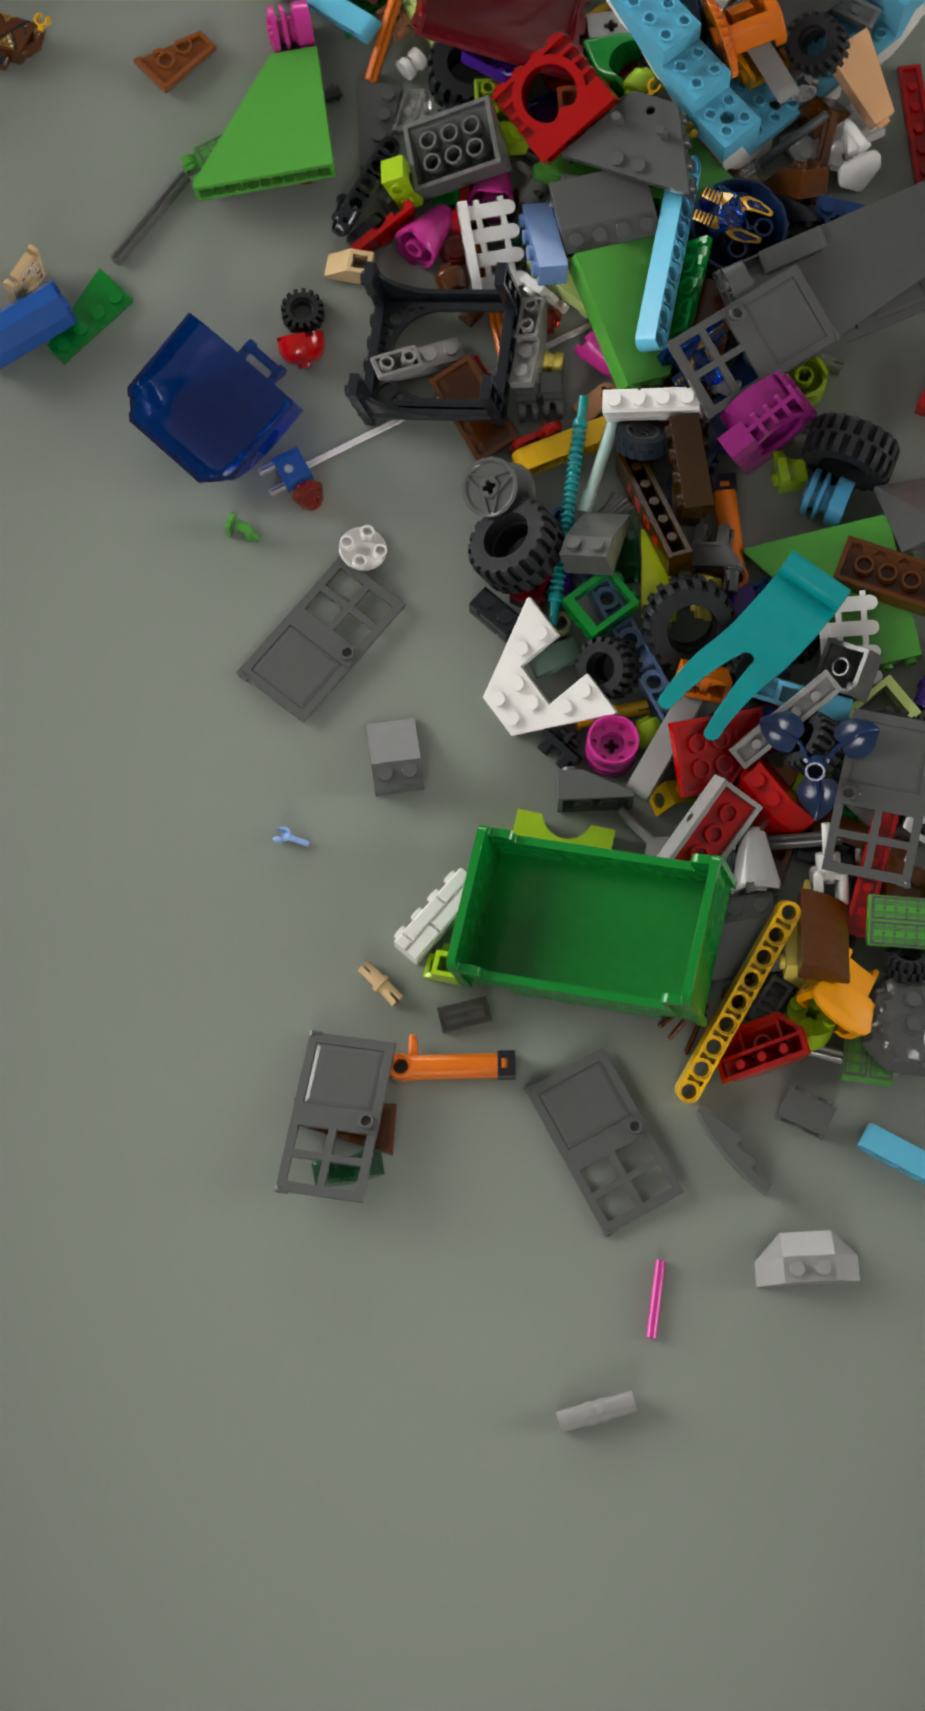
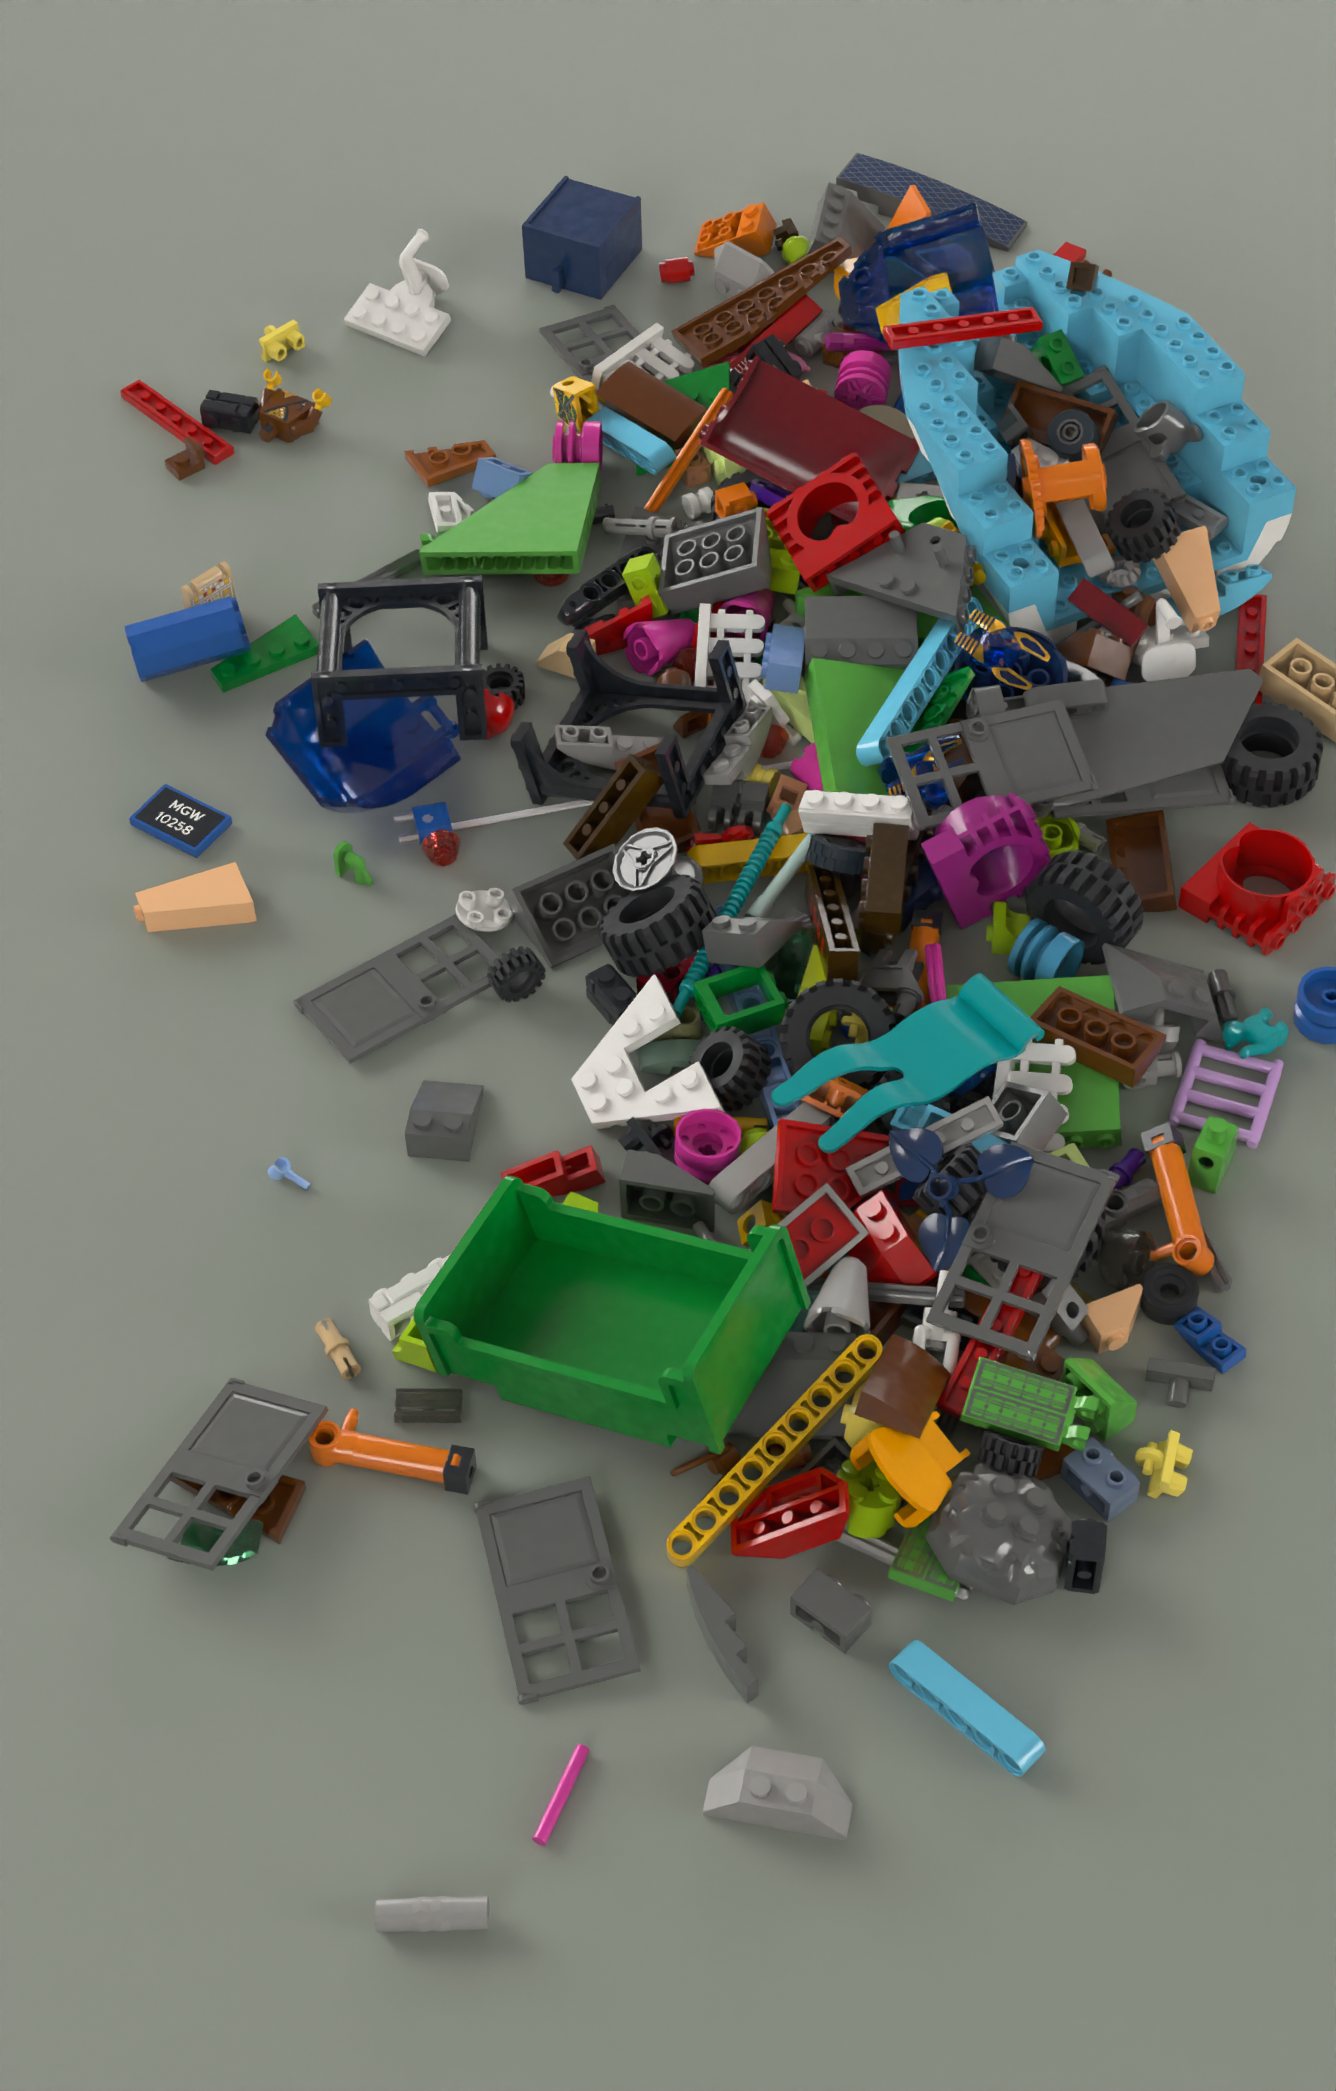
camera: 15 degrees right, 25 degrees down
(79, 512) = (180, 820): none -> tile
(126, 594) = (197, 901): none -> light nougat slope
(177, 374) = (348, 601): none -> black arch
(197, 122) = (448, 510): none -> white wing
(231, 77) = (496, 477): none -> medium blue brick
(383, 108) = (652, 528): none -> light grey pin
(412, 611) = (516, 974): none -> black tyre
(433, 530) = (566, 906): none -> dark grey slope
(447, 438) = (615, 807): none -> dark brown brick
(454, 78) = (734, 500): none -> orange brick
(496, 791) = (561, 1173): none -> red slope
(581, 374) = (786, 791): none -> nougat brick
(748, 546) = (935, 972): none -> dark pink axle
(802, 135) = (1108, 612): none -> dark red tile
(878, 379) = (1143, 854): none -> reddish brown slope
(895, 66) = (1236, 587): none -> medium azure slope

